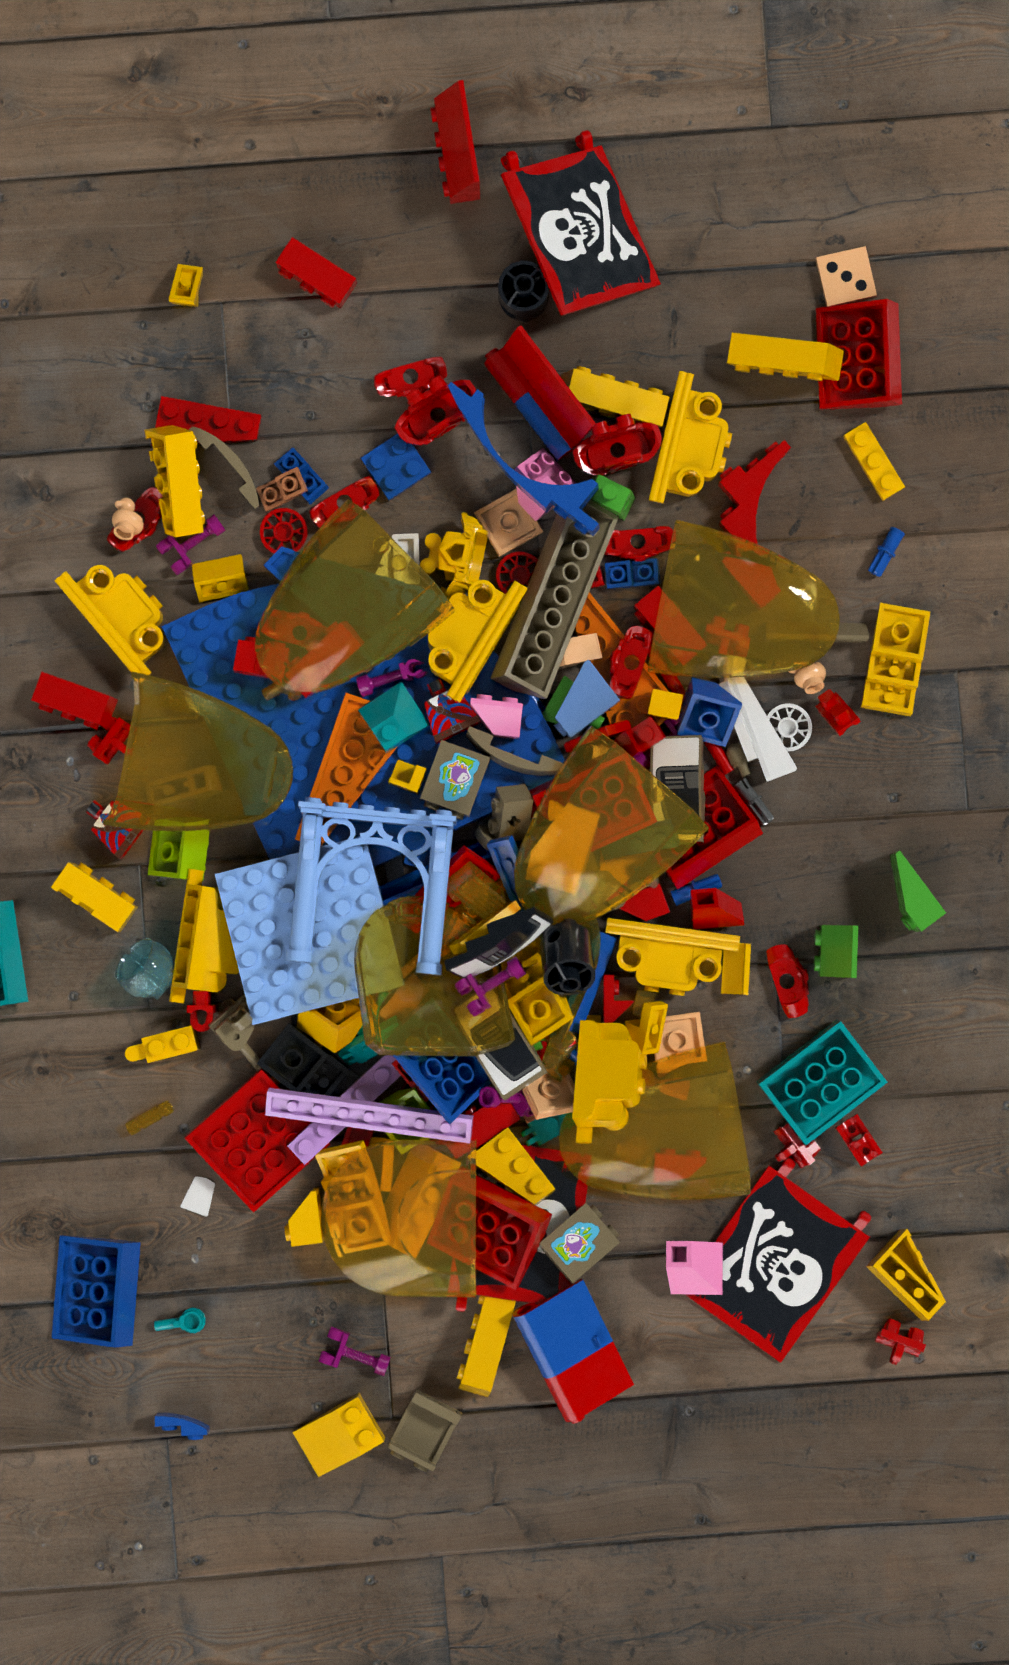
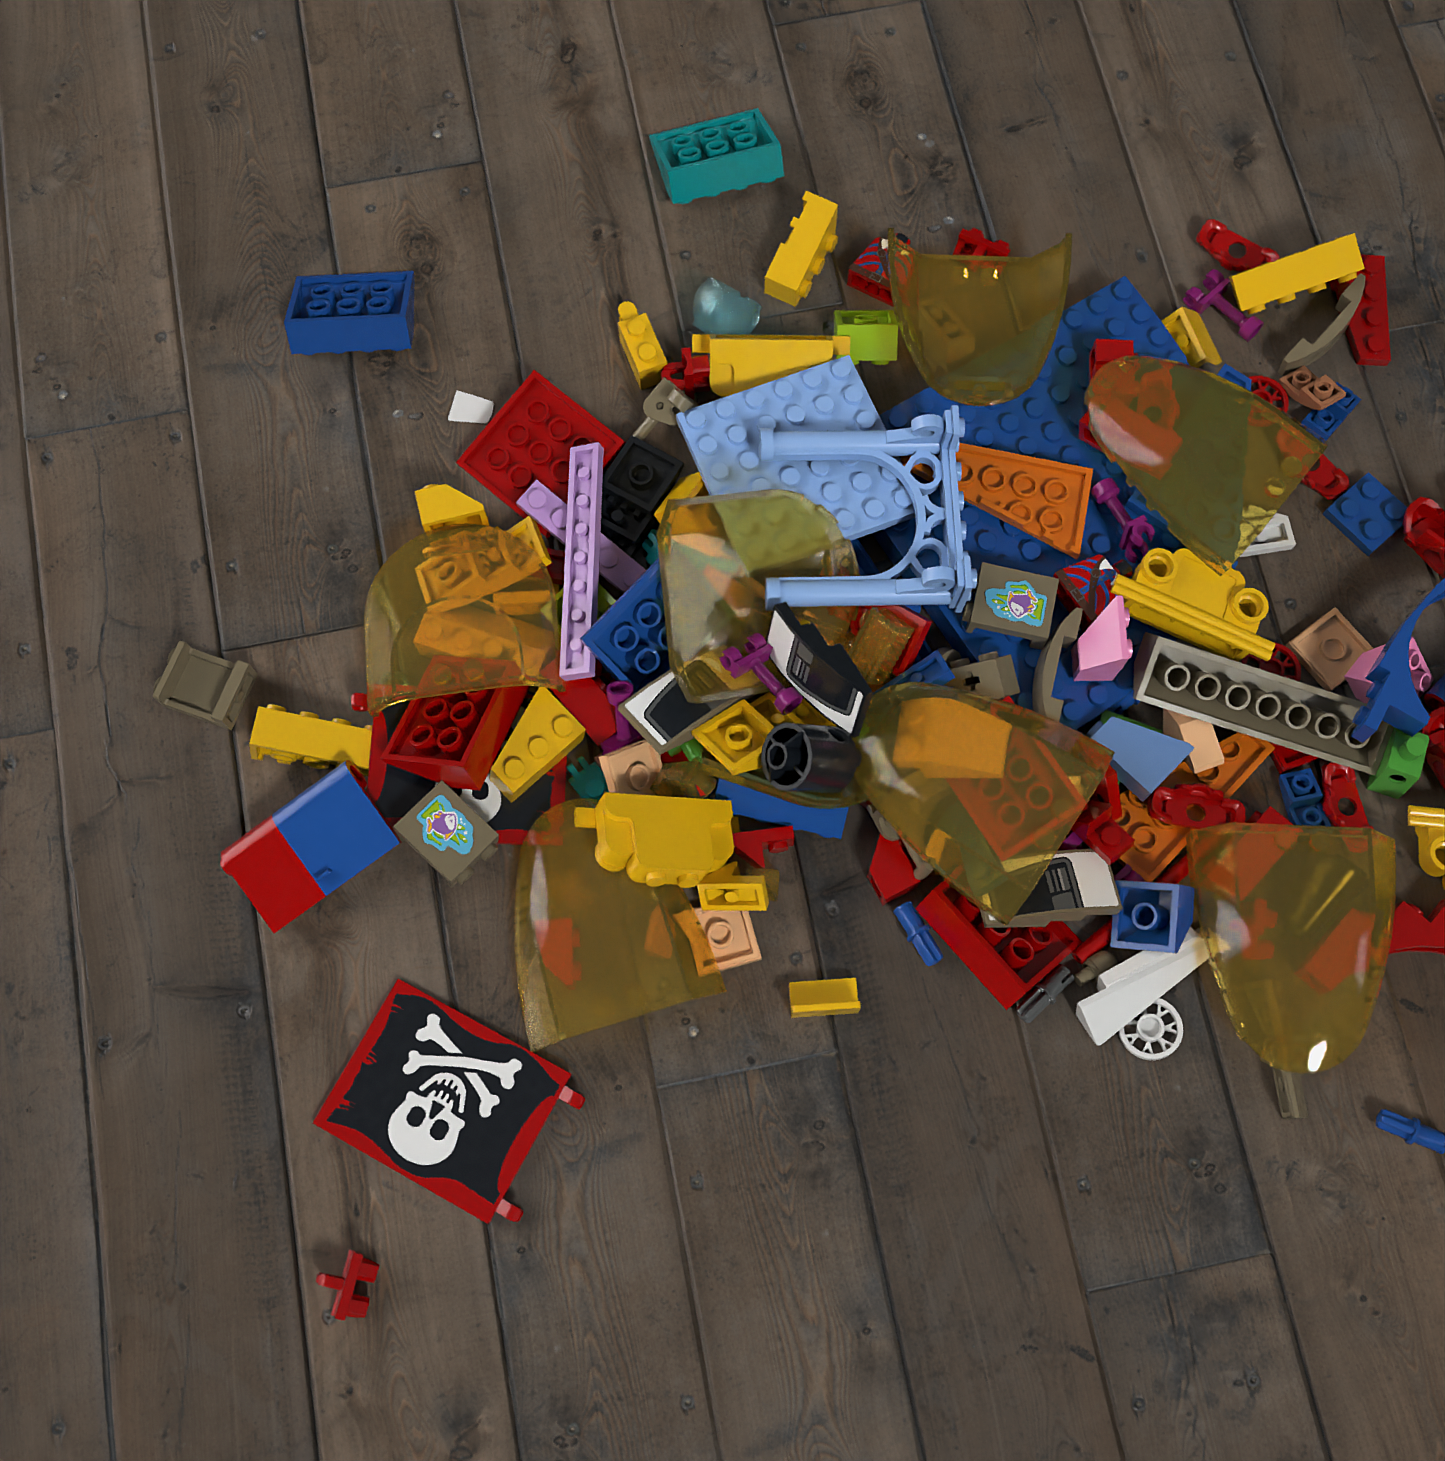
camera: 80 degrees right, 15 degrees down
(74, 701) = (1019, 205): red brick -> none
(119, 613) = (1129, 237): yellow brick -> none
(125, 521) = (1235, 232): light nougat animal -> none
(149, 1117) = (555, 344): clear yellow axle -> none
(189, 1426) = (203, 419): blue slope -> none
(191, 1321) = (323, 413): teal plate -> none
(273, 690) = (1077, 392): clear yellow arm -> none
(339, 1435) = (198, 593): yellow slope -> none
(378, 1363) = (284, 625): magenta bar -> none
(394, 717) = (1072, 523): teal slope -> none
(407, 776) = (1003, 550): yellow panel -> none
(457, 555) = (1288, 602): yellow piece -> none
(665, 704) = (1153, 856): yellow panel -> none
(669, 955) = (829, 907): yellow brick -> none
(695, 1267) = (428, 988): bright pink slope -> none
(714, 909) = (897, 958): red slope -> none
(795, 999) = (794, 1081): red piece -> none
(800, 1152) = (591, 1117): red hips -> none
(810, 678) = (1224, 1046): light nougat animal -> none
(821, 1081) = (688, 1129): teal slope -> none
(836, 712) = (1185, 1088): red hips -> none
(836, 951) = (868, 1125): bright green slope -> none
(863, 1148) = (603, 1202): red hips -> none
(895, 659) = (1271, 1162): yellow slope -> none
(906, 1276) = (438, 1281): yellow wedge -> none
(913, 896) = (950, 1231): bright green slope -> none

